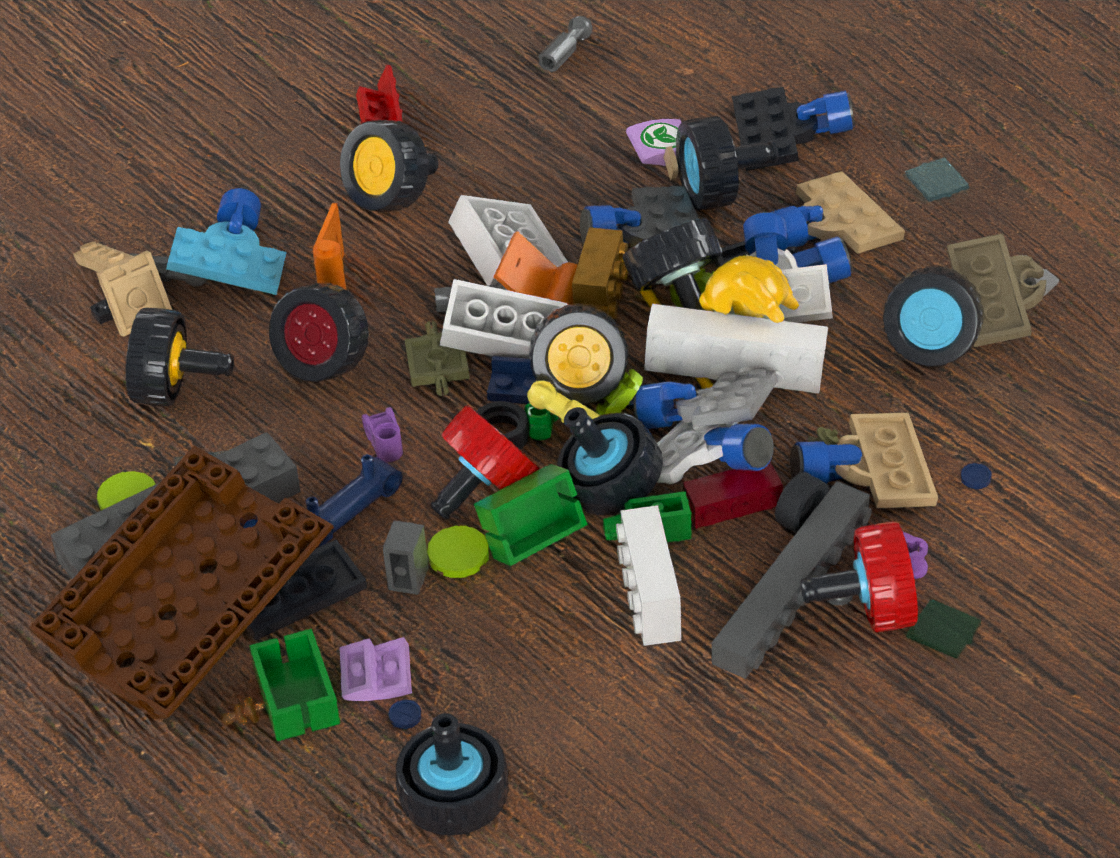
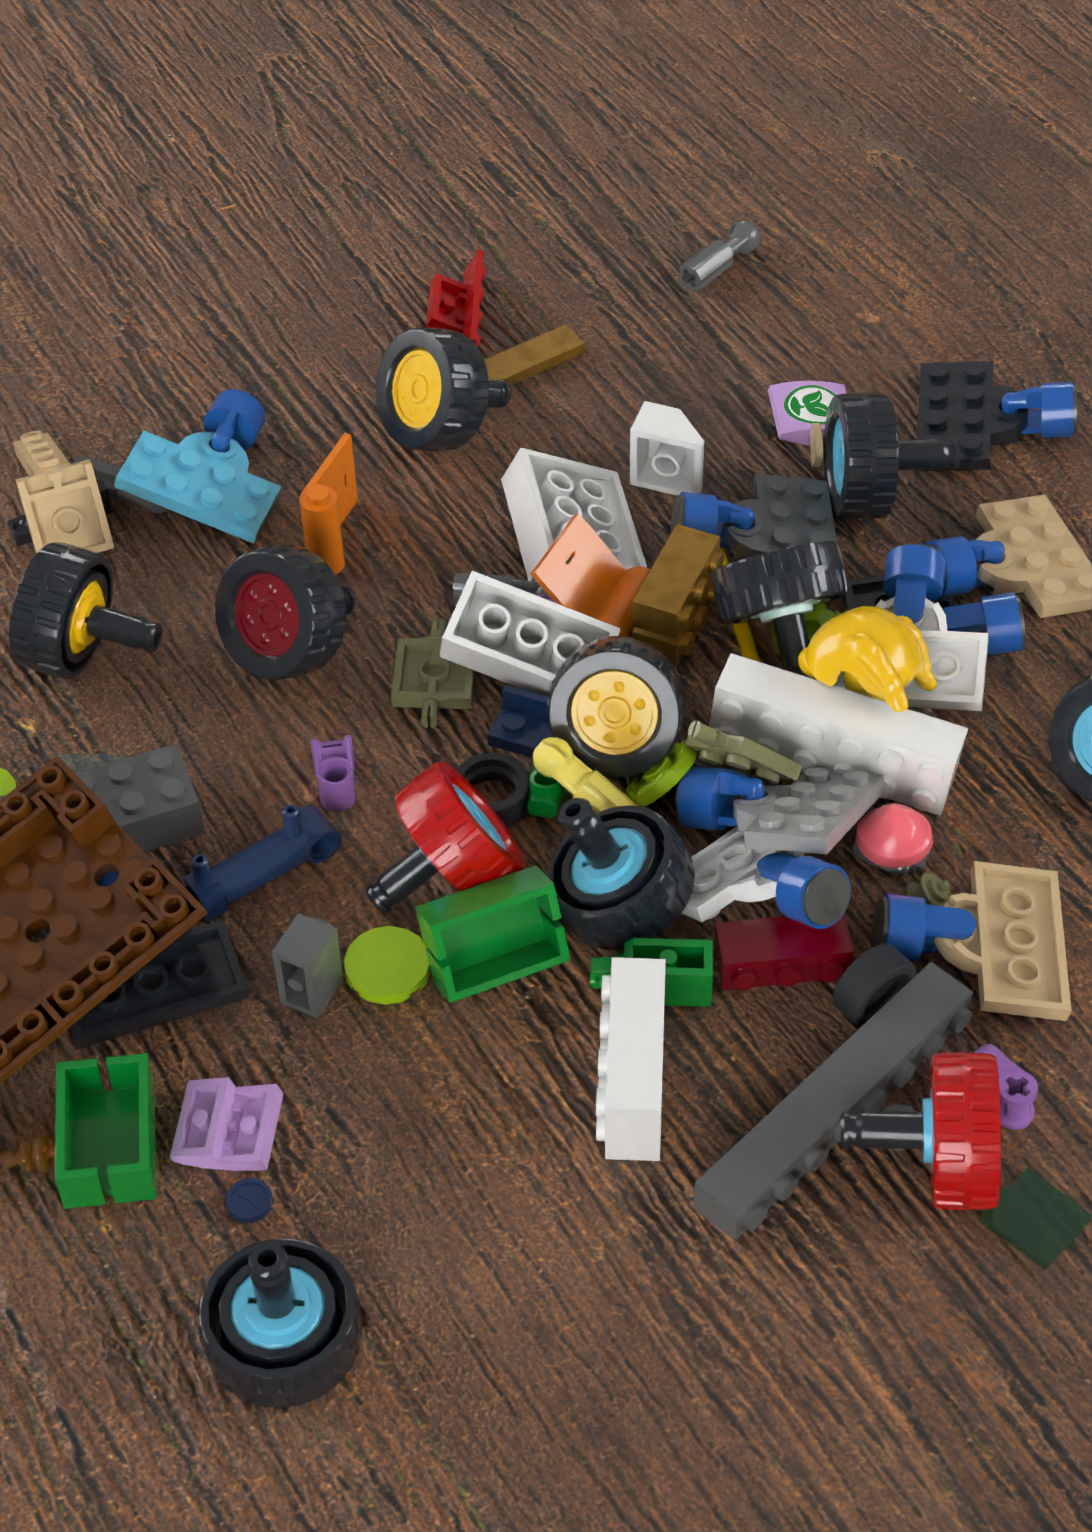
camera: 10 degrees right, 5 degrees up
(451, 132) = (535, 355): none -> pearl gold tile
(565, 182) = (665, 451): none -> white slope
(674, 369) = (741, 755): none -> olive plate
(791, 411) = (894, 839): none -> coral hair

